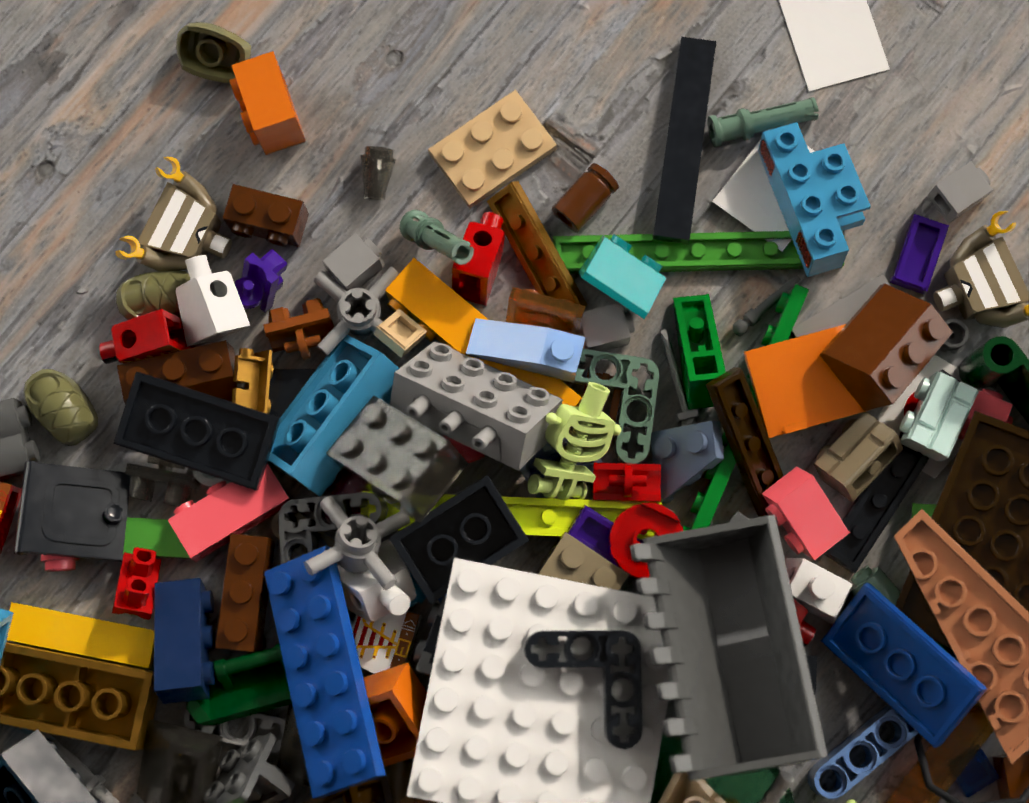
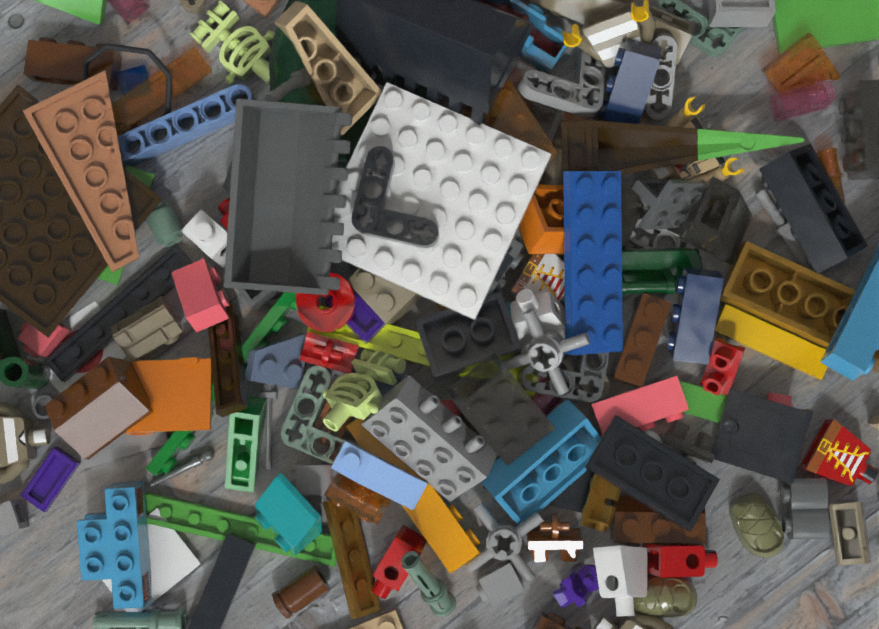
camera: 165 degrees left, 5 degrees up
(400, 333) = (475, 514): tan tile -> none
(903, 665) = (161, 164): blue tile -> none
(937, 416) = (76, 344): light aqua brick -> none

